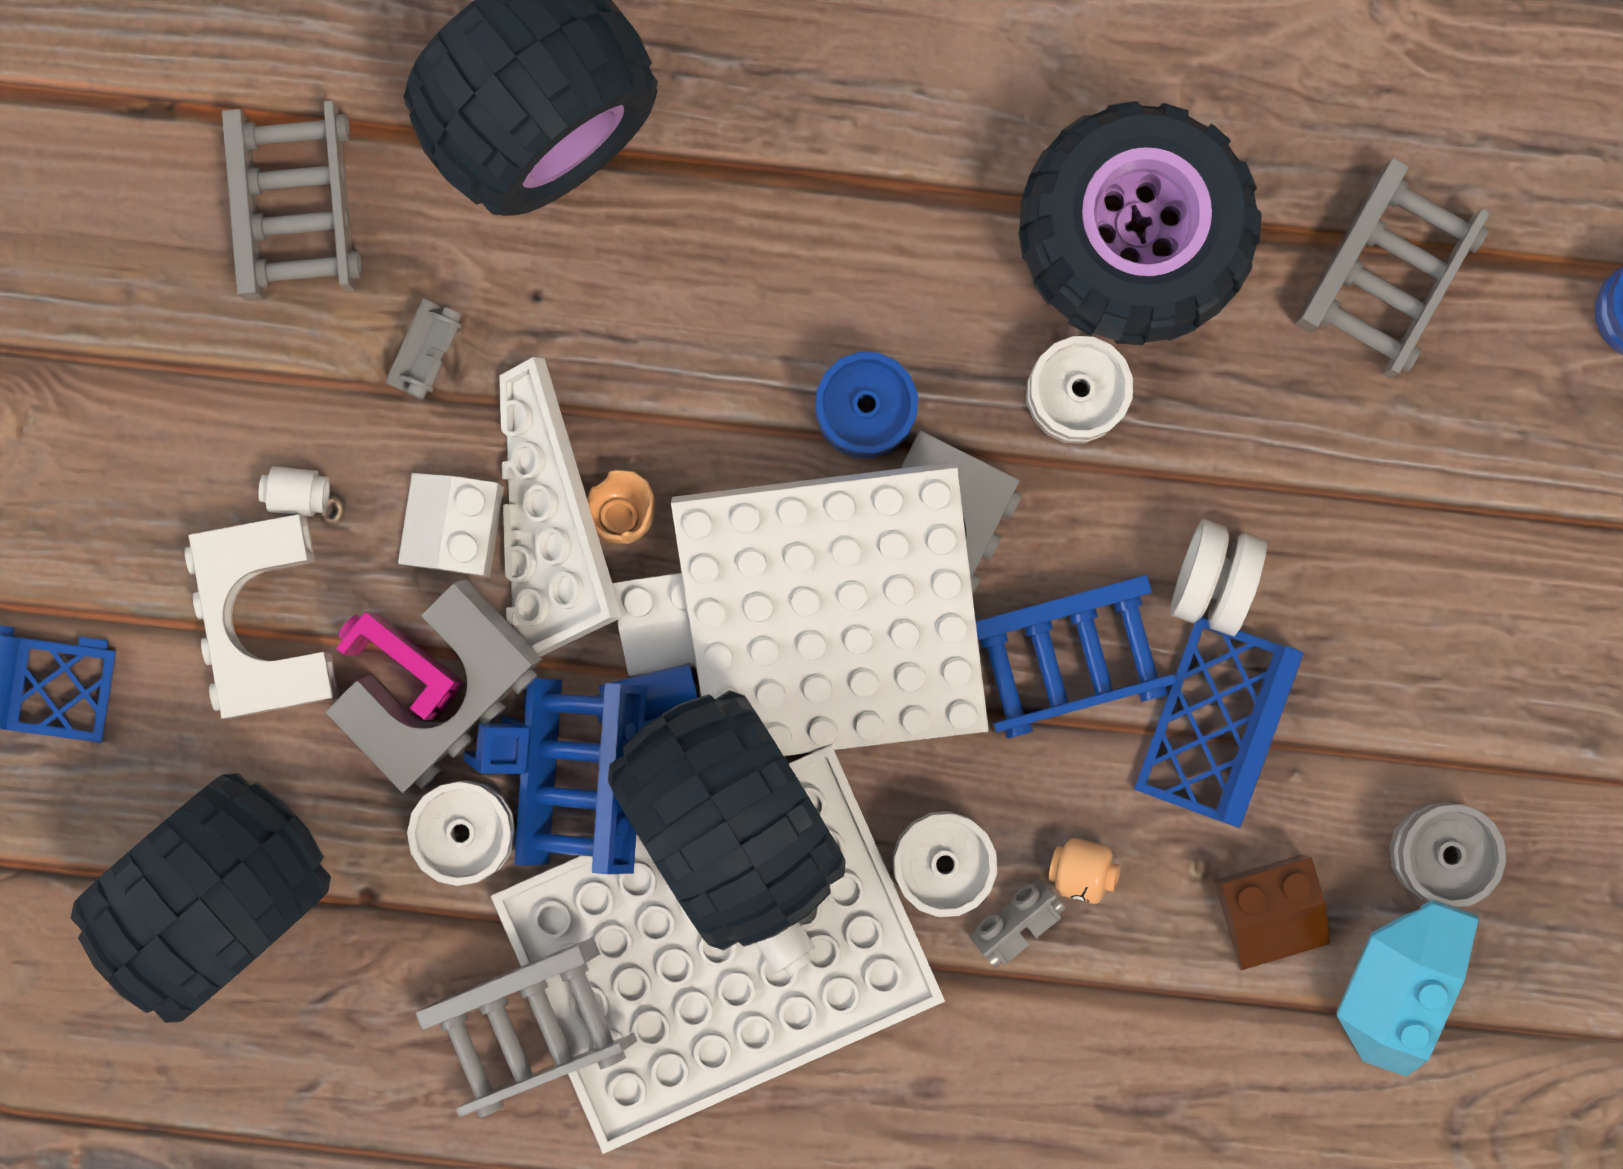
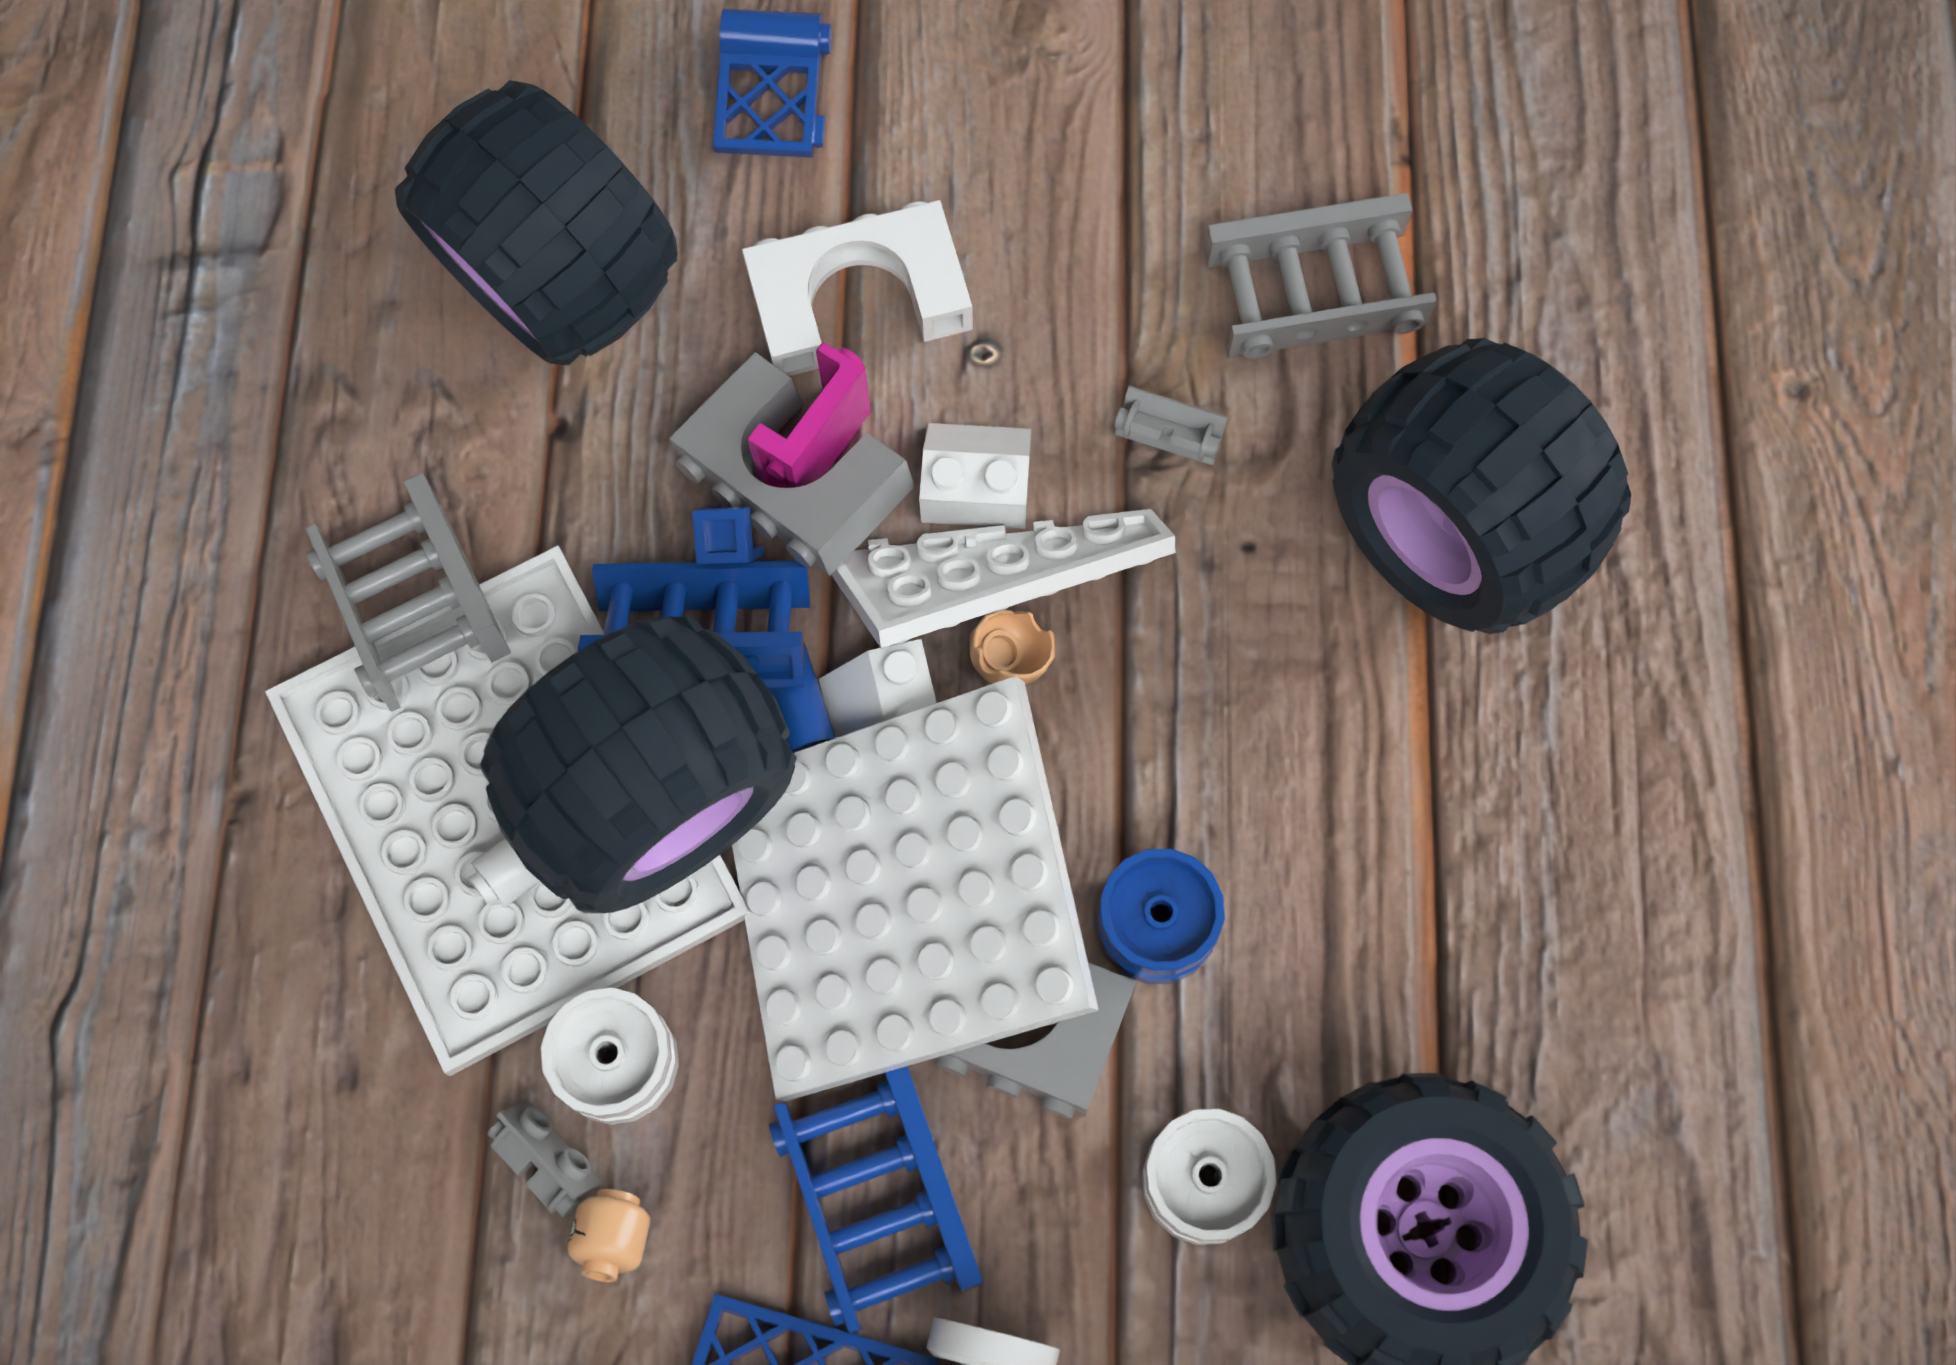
camera: 85 degrees right, 15 degrees down
(294, 491) = (998, 308): white brick -> none
(436, 844) = (627, 504): white wheel -> none

